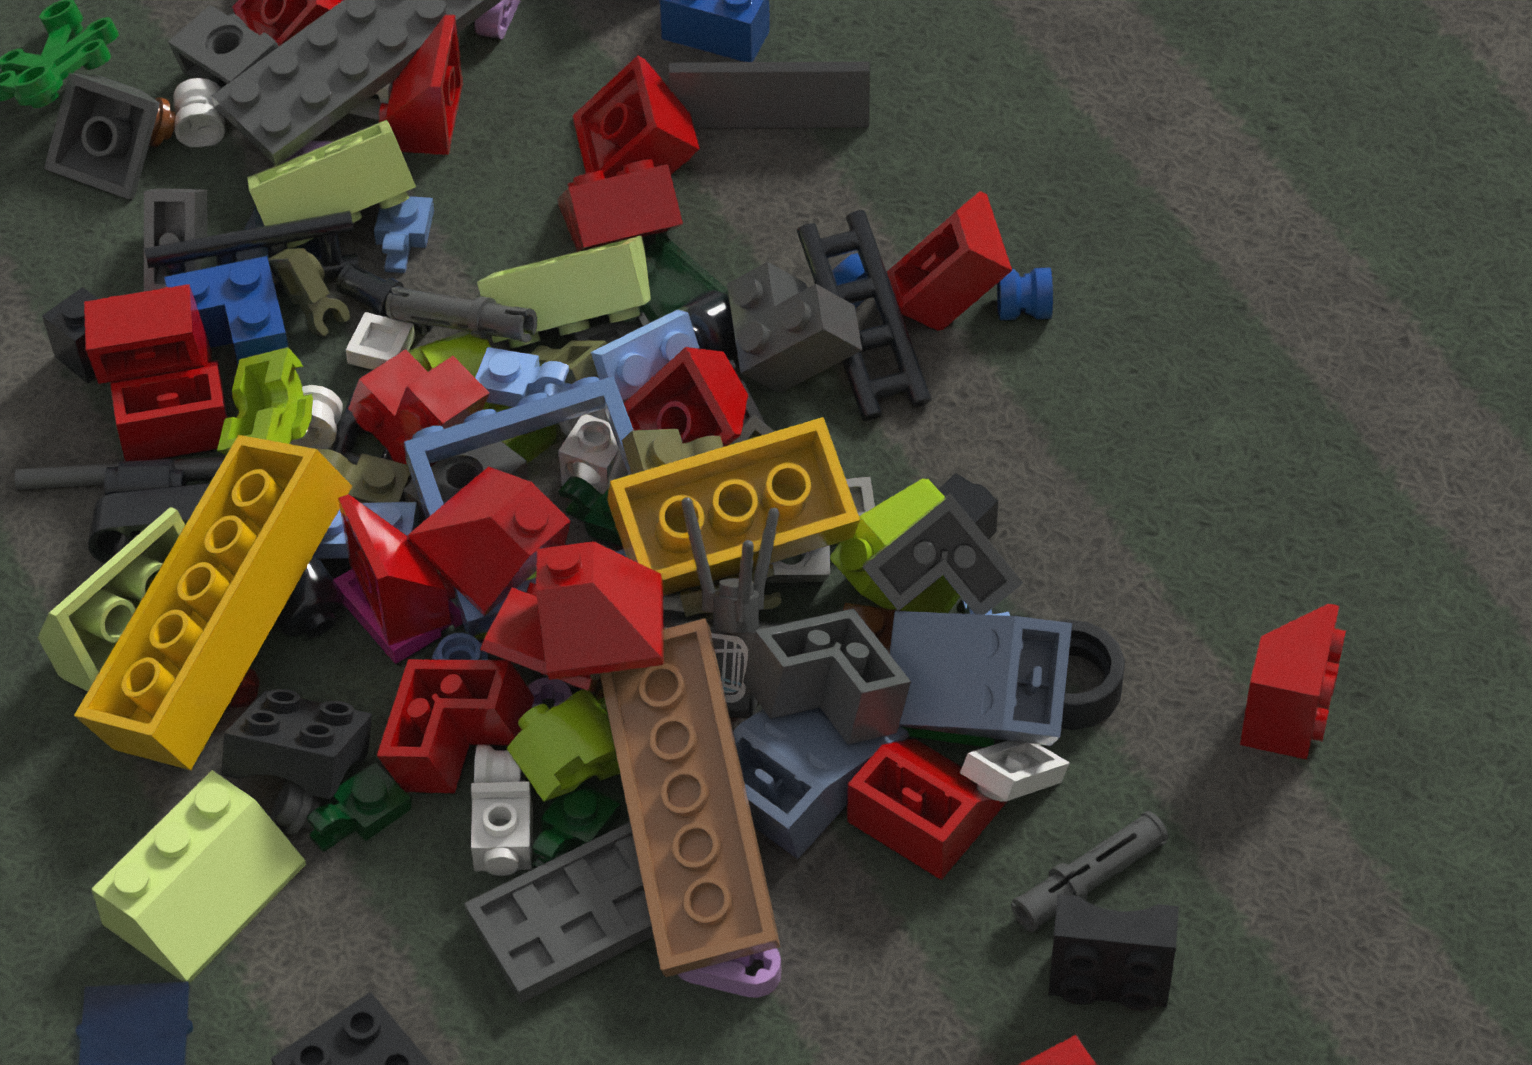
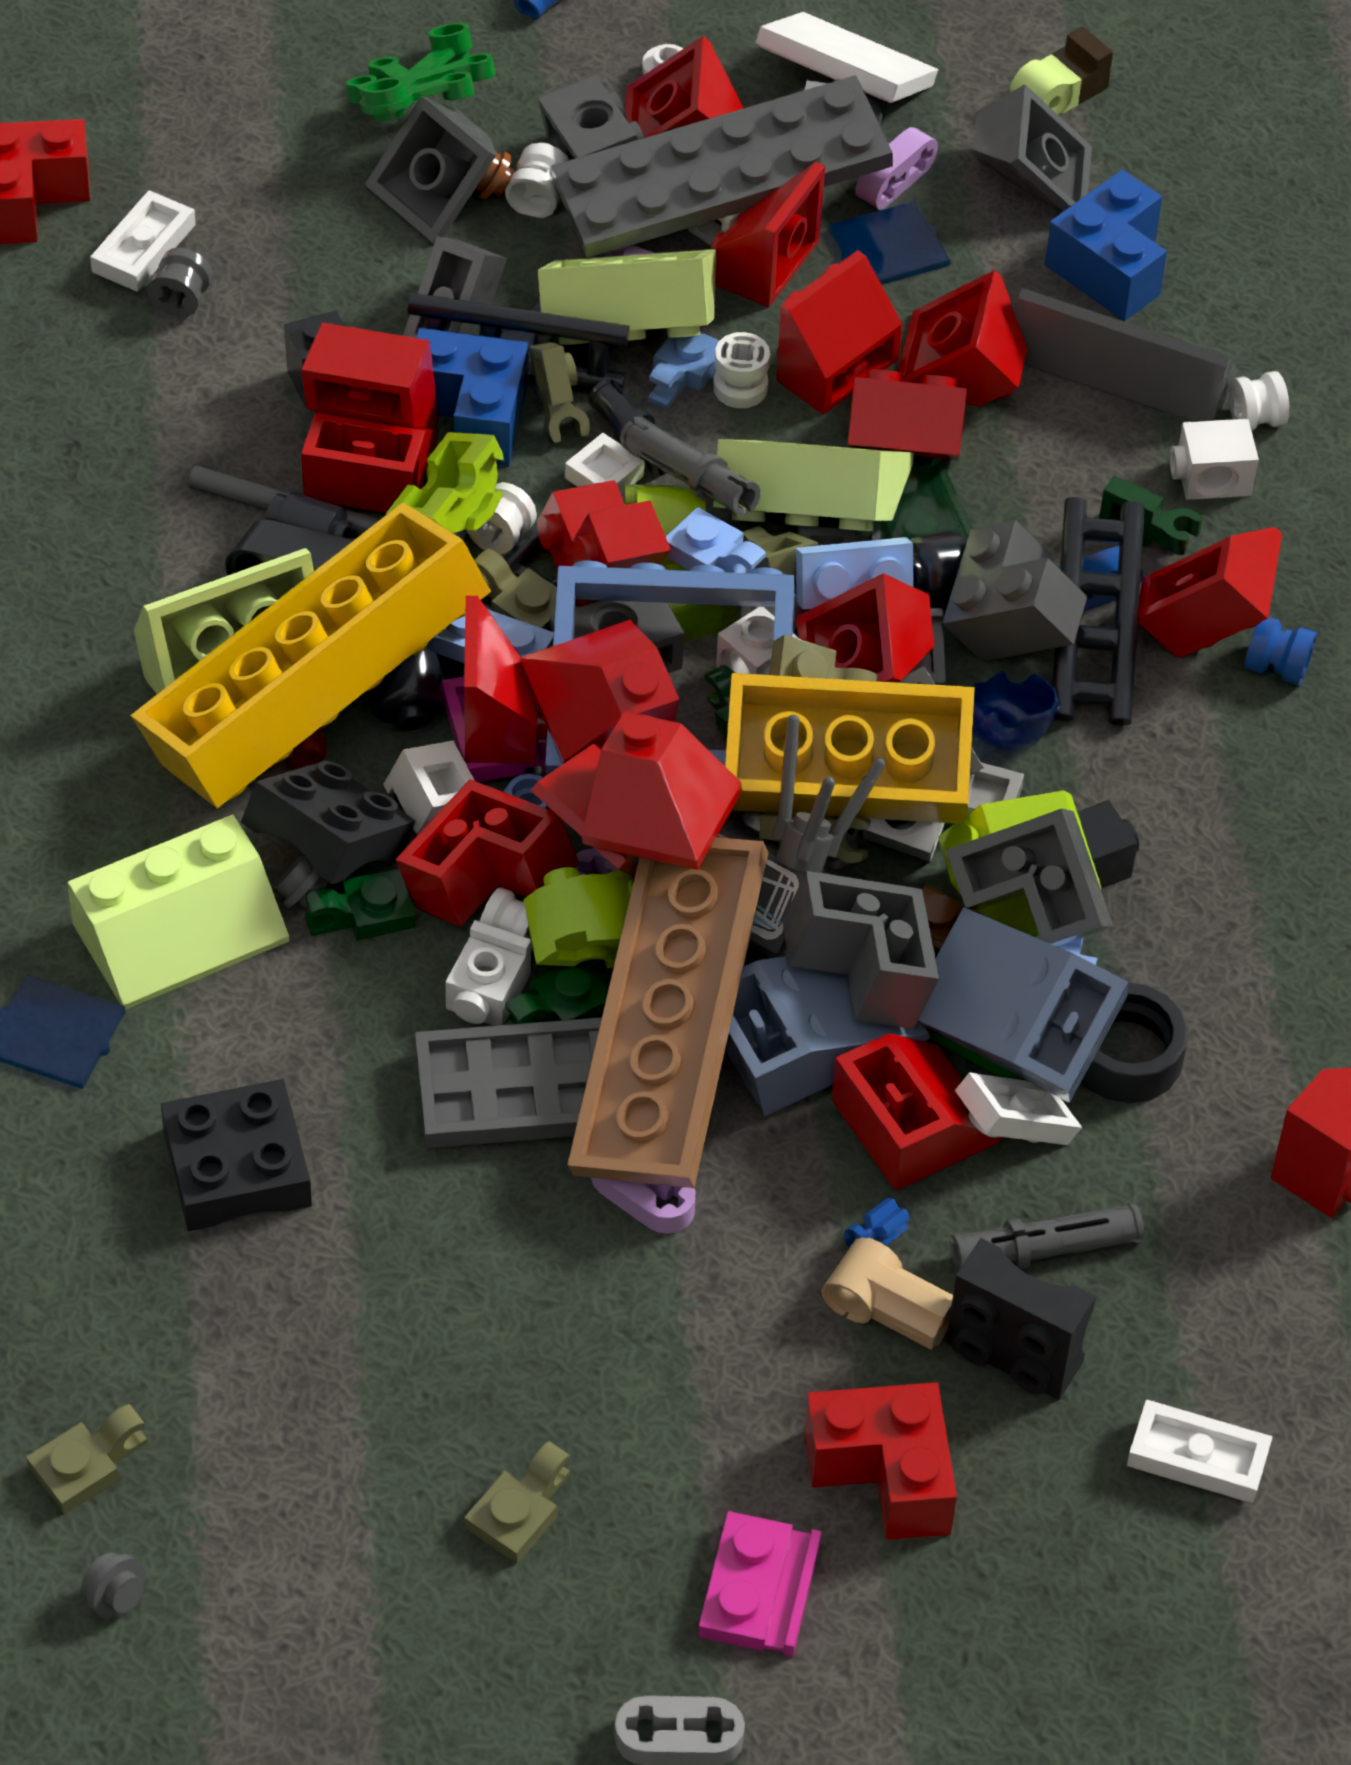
camera: 20 degrees right, 0 degrees up
(367, 676) = (427, 780): none -> white brick
(456, 216) = (741, 370): none -> white wheel
(524, 66) = (894, 241): none -> clear blue piece
(526, 157) = (836, 333): none -> red slope
(833, 213) = (1158, 524): none -> dark green plate
(846, 417) = (1013, 713): none -> clear blue hair
(890, 152) = (1215, 459): none -> white brick
(900, 91) = (1260, 400): none -> white wheel
(944, 919) = (881, 1224): none -> blue piece
(969, 971) = (876, 1286): none -> tan piece
(1308, 1004) = (1199, 1451): none -> white plate

